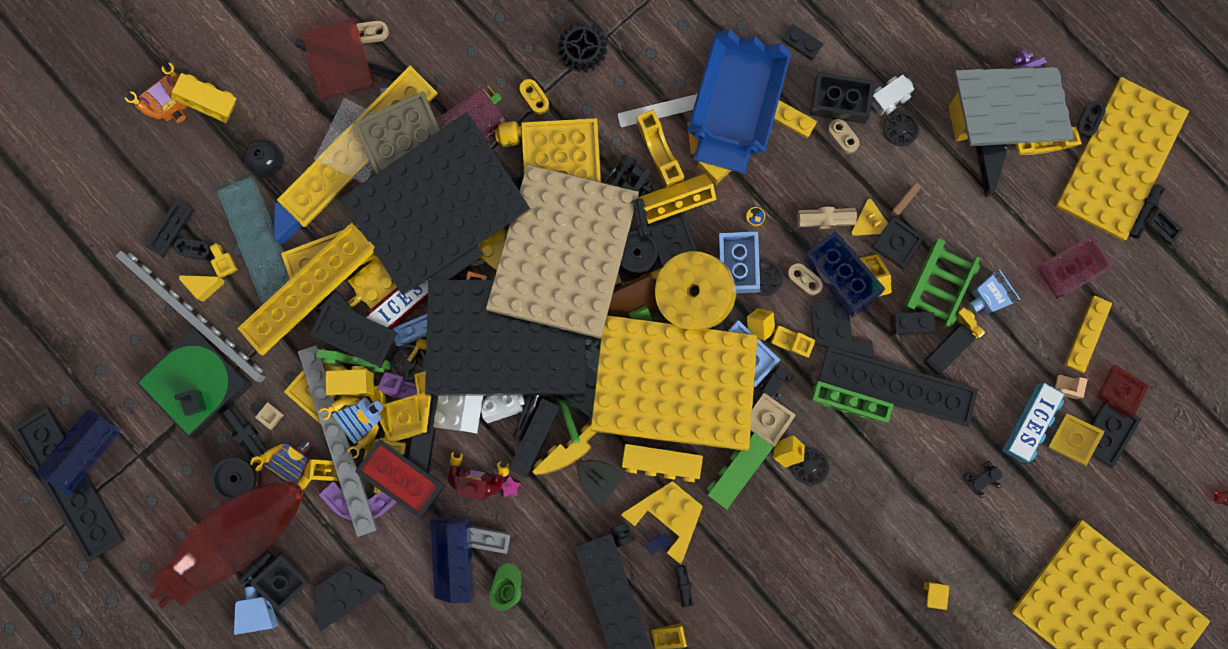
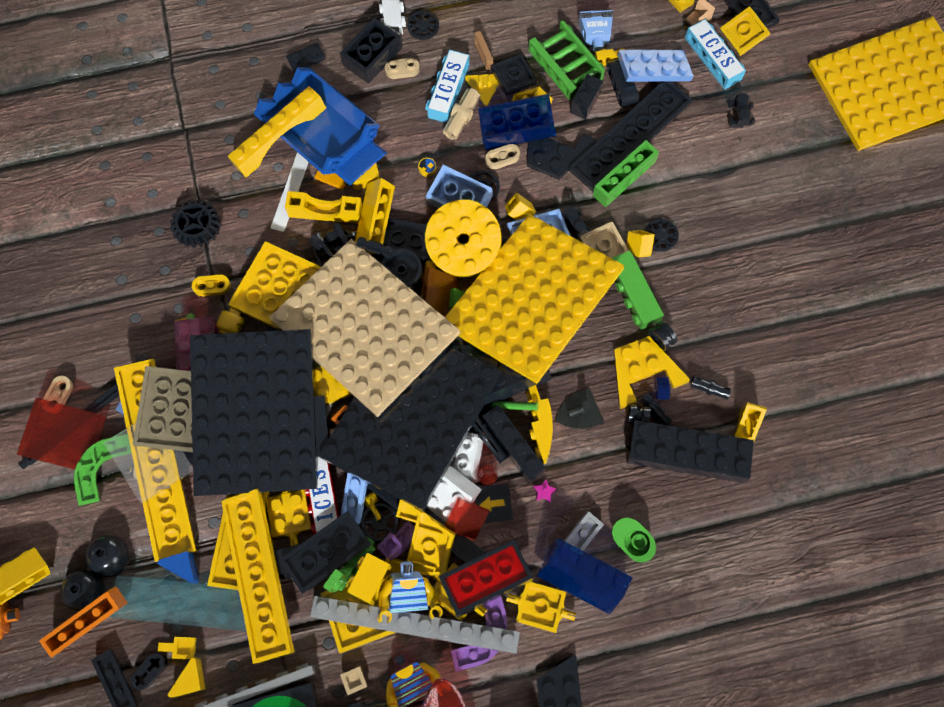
camera: 60 degrees left, 10 degrees down
(200, 175) = (83, 621): none -> orange brick
(225, 157) = (81, 589): none -> black cylinder
(319, 98) = (86, 473): none -> bright green plate
(322, 470) = (436, 653): yellow slope -> none
(408, 537) = (541, 607): none -> yellow plate
(443, 434) = (466, 518): none -> clear red piece
(475, 483) = (525, 517): dark red torso -> none
(476, 448) = (497, 501): none -> black sticker
(502, 431) = (487, 479): none -> clear red cone
(636, 547) = (656, 409): none -> black axle
(662, 461) = (592, 348): yellow brick -> none
(679, 54) = (252, 151): none -> yellow arch
(707, 518) = (663, 335): none -> black wheel
(792, 341) = (549, 193): yellow slope -> none
(794, 120) = (367, 95): yellow plate -> none
(848, 189) = (448, 86): none -> brick
(937, 595) = (819, 192): yellow panel -> none
(983, 371) = (654, 65): none -> medium blue plate

